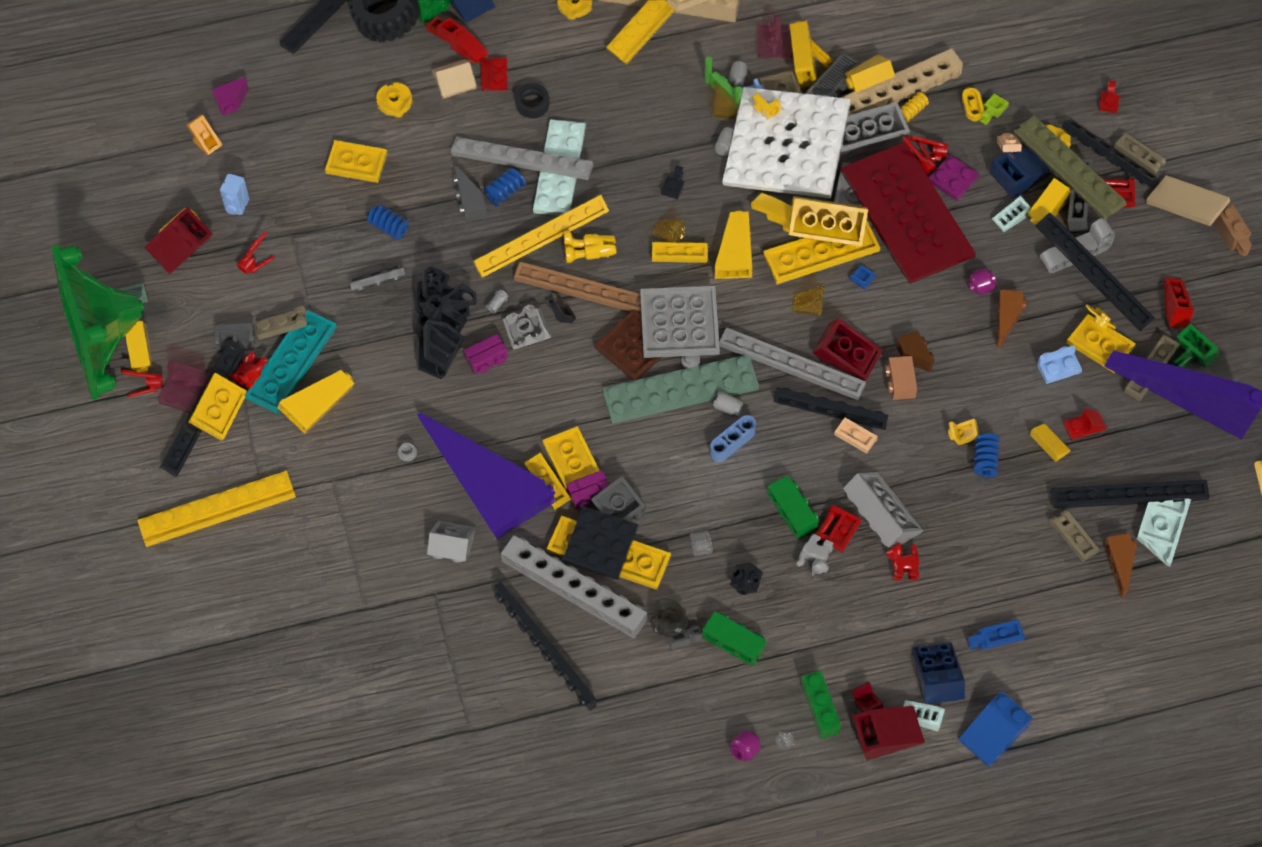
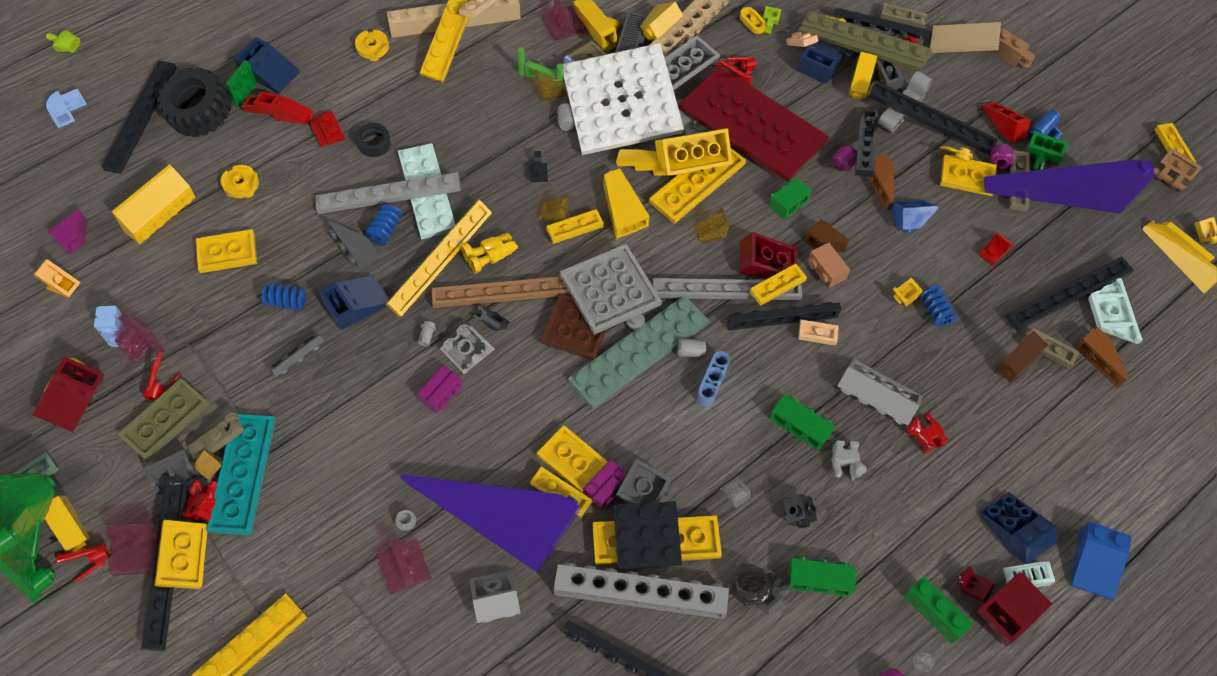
camera: 30 degrees left, 0 degrees up
(246, 291) = (163, 419): none -> olive plate
(249, 214) = (136, 339): none -> clear pink bracket
(266, 342) = (207, 464): none -> pearl gold slope
(310, 95) = (153, 204): none -> yellow slope
(313, 402) = (283, 510): yellow slope -> none
(389, 487) = (403, 565): none -> clear pink bracket
(439, 321) = (388, 396): black piece -> none
(447, 246) = (353, 300): none -> dark blue slope
(454, 78) = (290, 144): tan slope -> none
(737, 74) = (546, 58): light grey piece -> none
(767, 110) = (590, 73): yellow bracket -> none
(839, 376) = (778, 284): none -> yellow plate
(843, 530) = (857, 424): red plate -> none
(862, 276) = (743, 191): blue tile -> none
(902, 300) = (789, 198): none -> green brick
(914, 106) = (708, 33): yellow piece -> none
(953, 177) = (771, 82): magenta plate -> none
(997, 635) = (1045, 468): blue hinge -> none
(1009, 272) = (867, 143): none -> black plate
(1016, 359) = (912, 214): none -> slope
(1019, 202) = (839, 85): light aqua slope -> none
(1029, 531) = (1022, 357): none -> reddish brown slope
(1049, 442) = (978, 274): yellow slope -> none
(1059, 364) = (948, 205): light blue bracket -> none
(1147, 337) = (1002, 156): none -> magenta head
(1216, 322) = (1045, 124): none -> blue piece

